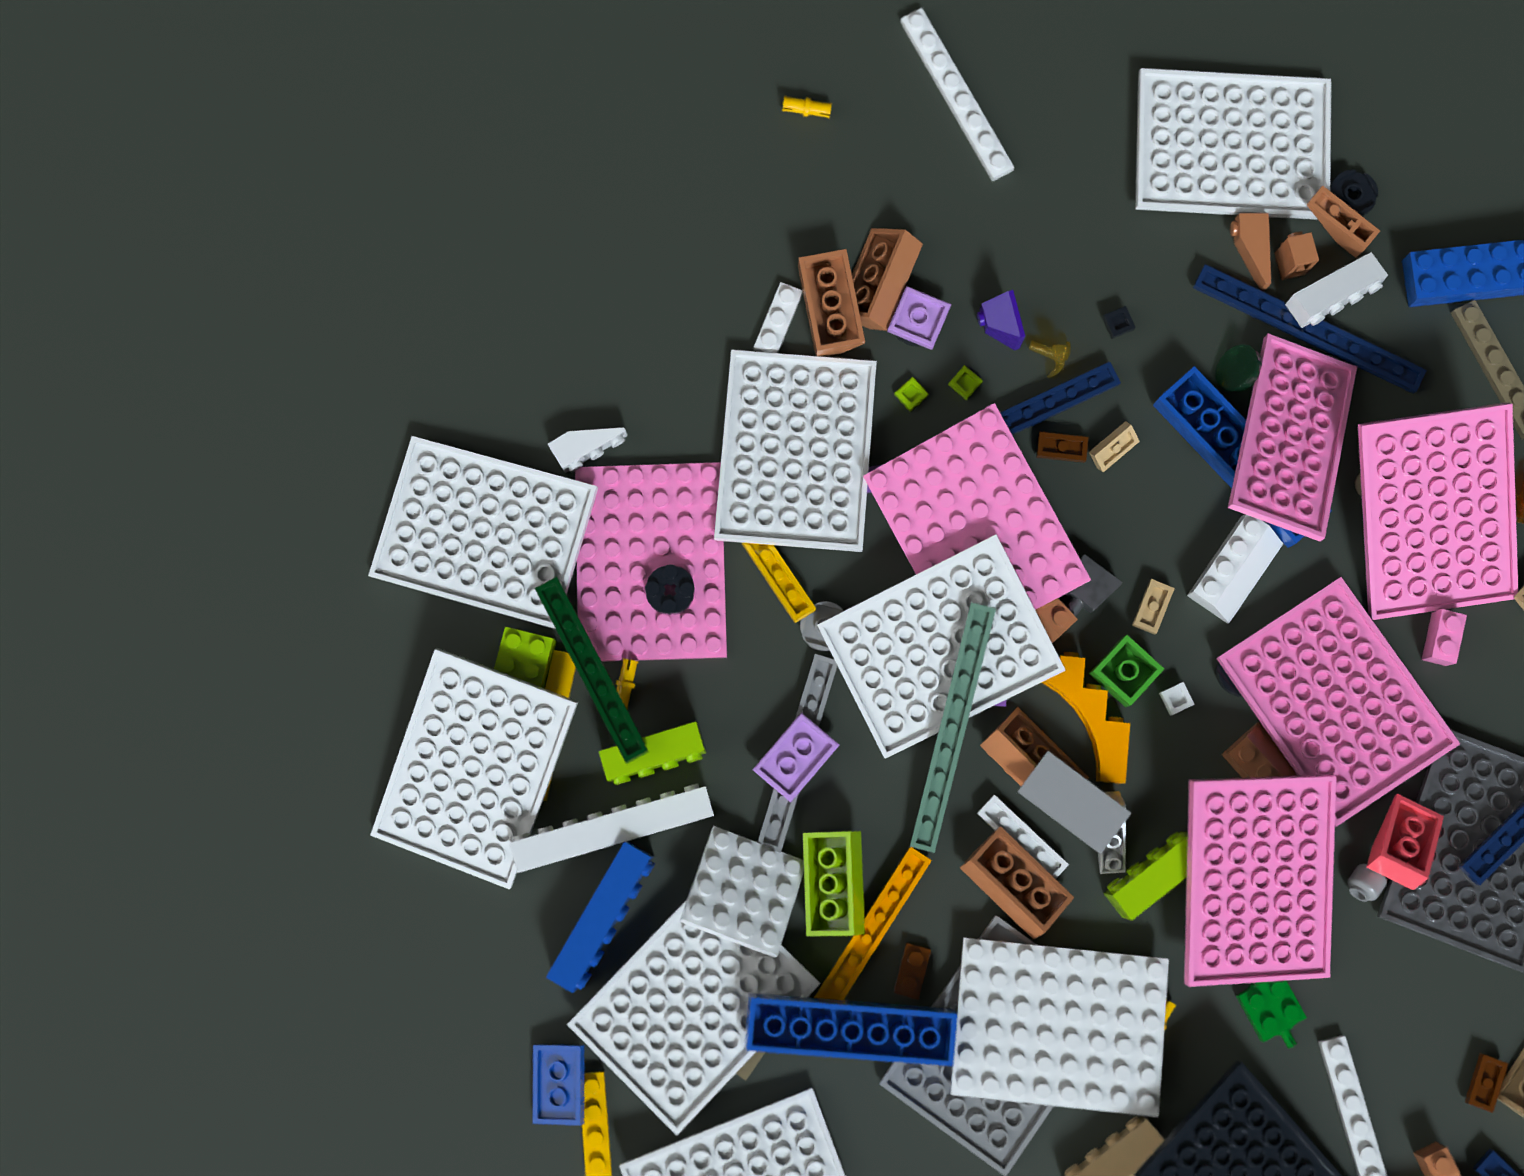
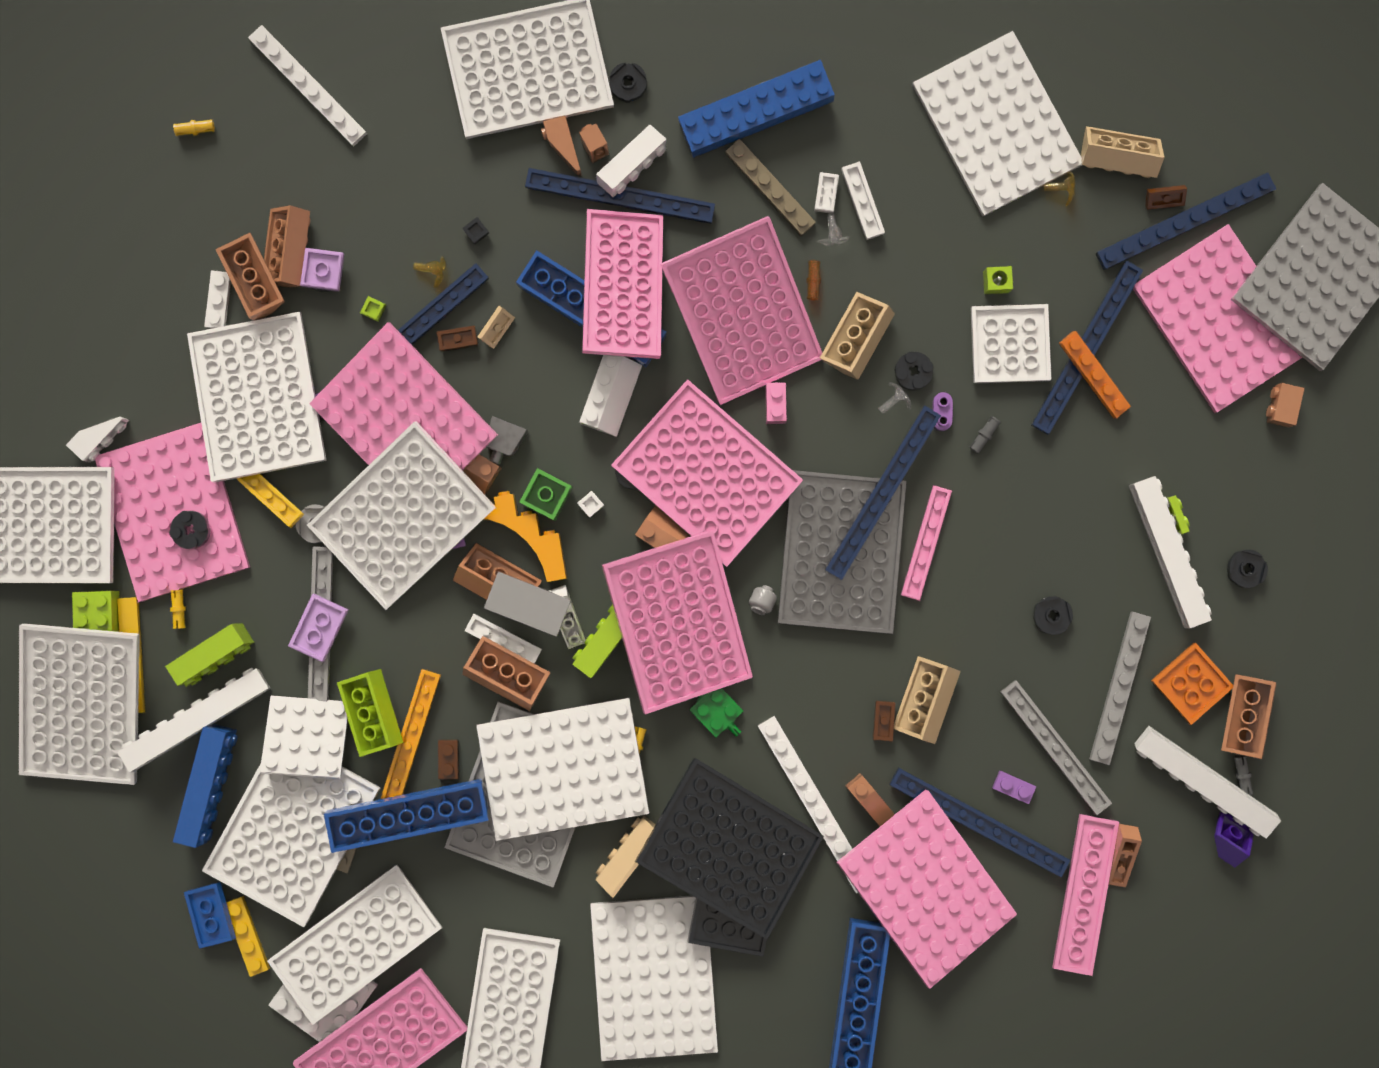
camera: 20 degrees left, 5 degrees up
(591, 670) = (143, 607): dark green plate -> none
(911, 394) = (334, 329): lime tile -> none
(953, 727) = (425, 572): sand green plate -> none
(1002, 320) = (384, 254): dark purple slope -> none
(1153, 606) = (556, 440): tan plate -> none
(1238, 368) = (572, 241): clear green tile -> none
(1342, 222) = (622, 106): nougat slope -> none
(1406, 843) = (781, 563): coral slope -> none

